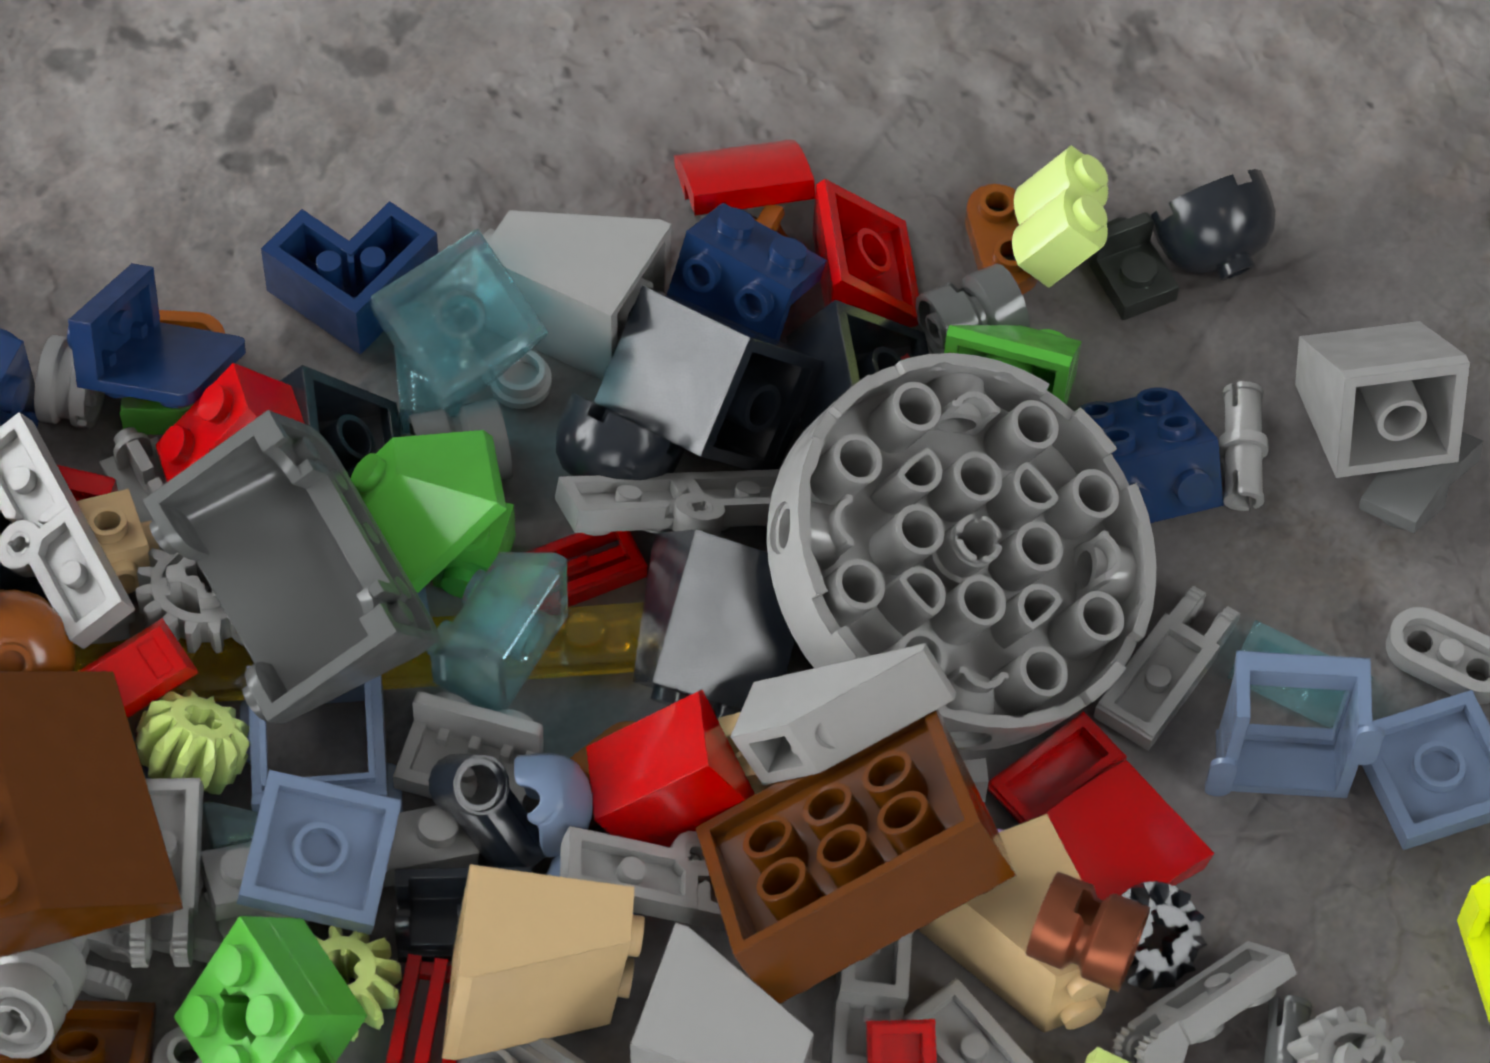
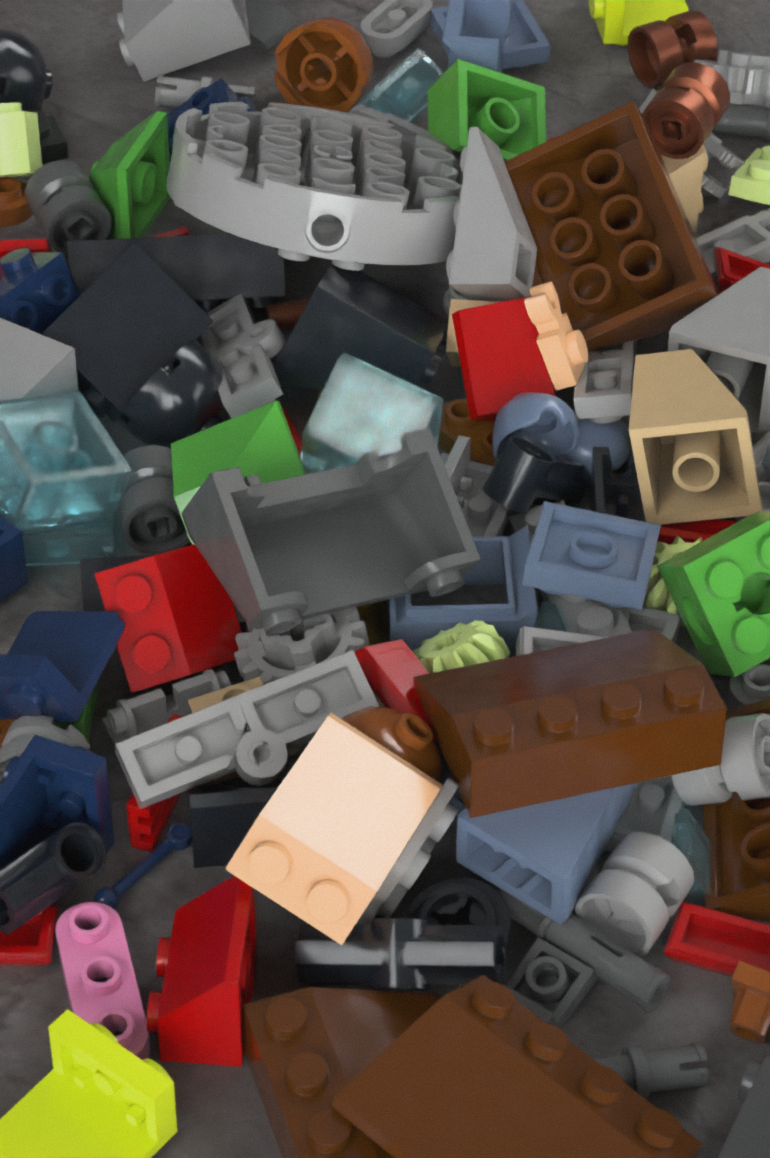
camera: 85 degrees left, 15 degrees down
(658, 802) = (559, 345): none -> light nougat plate
(1151, 747) = (496, 103): none -> bright green slope
(1304, 567) = (323, 65): none -> dark orange cylinder
(1409, 973) = (664, 45): none -> copper wheel

